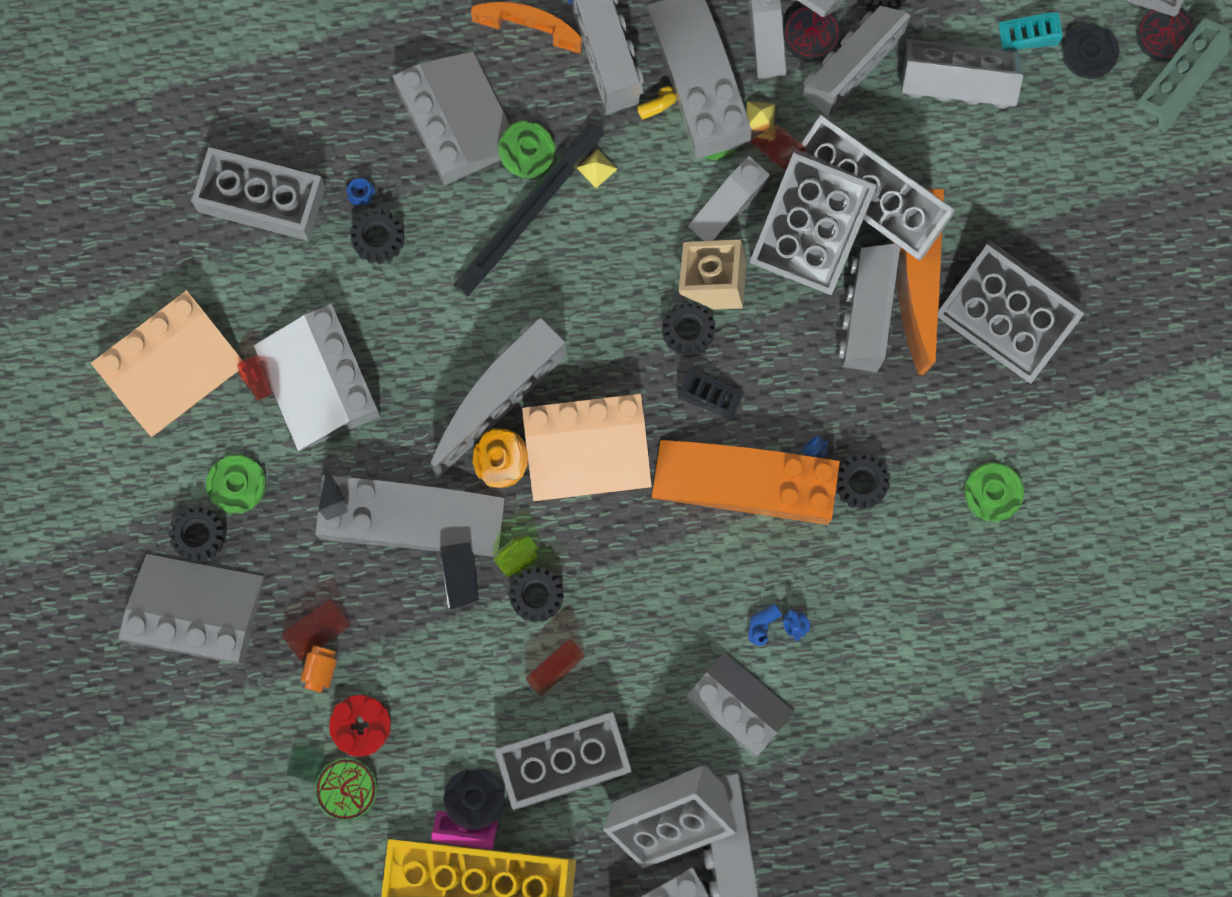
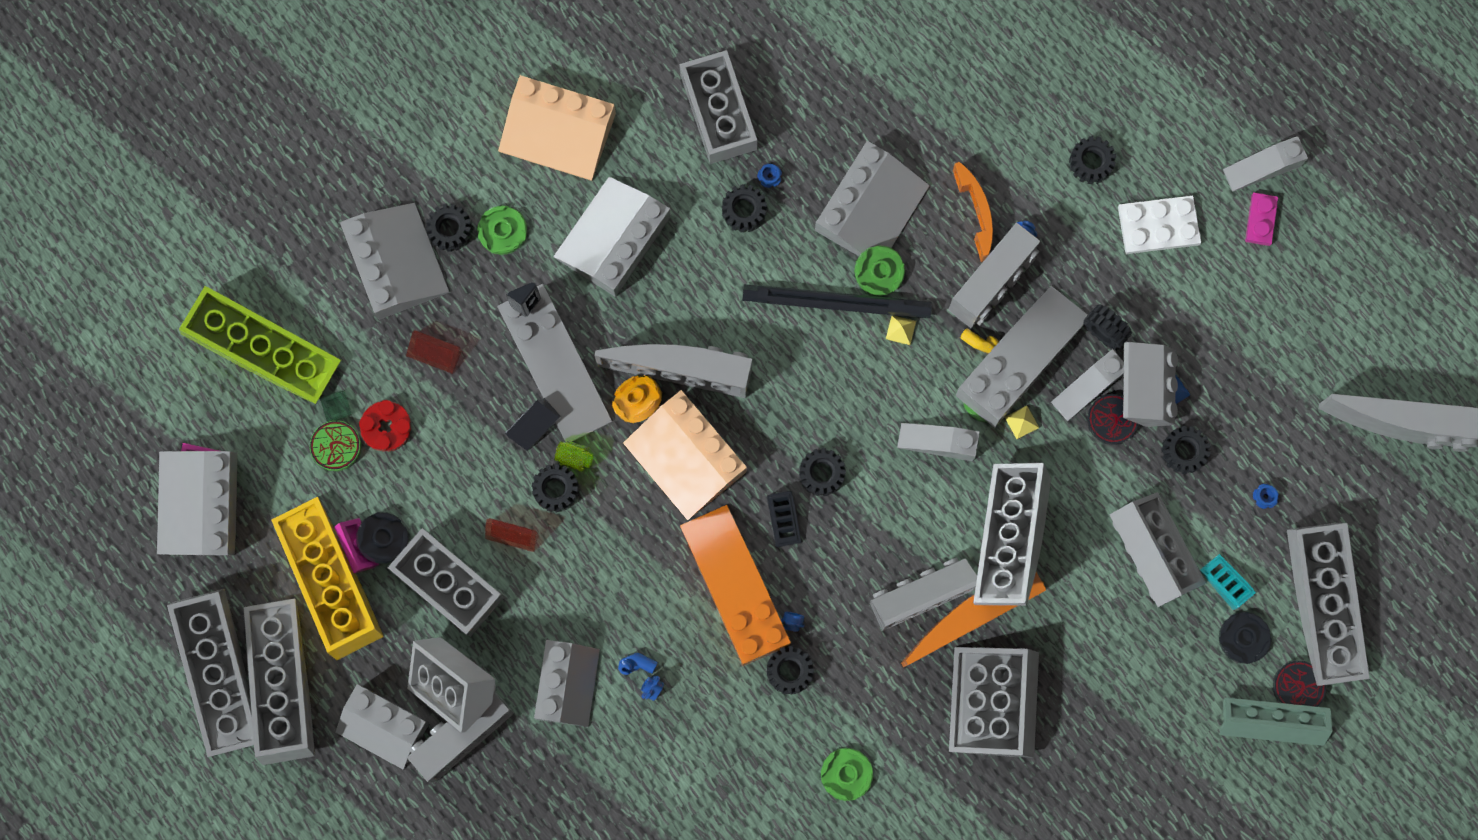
camera: 60 degrees right, 0 degrees up
(190, 803) = (258, 345): none -> lime slope
(255, 377) = (585, 192): clear red cone -> none
(318, 669) = (406, 372): orange brick -> none
(714, 273) = (873, 463): tan slope -> none
(778, 145) = (1002, 450): clear red slope -> none
(813, 222) = (957, 508): light grey slope -> none
(855, 58) = (1112, 463): light grey slope -> none

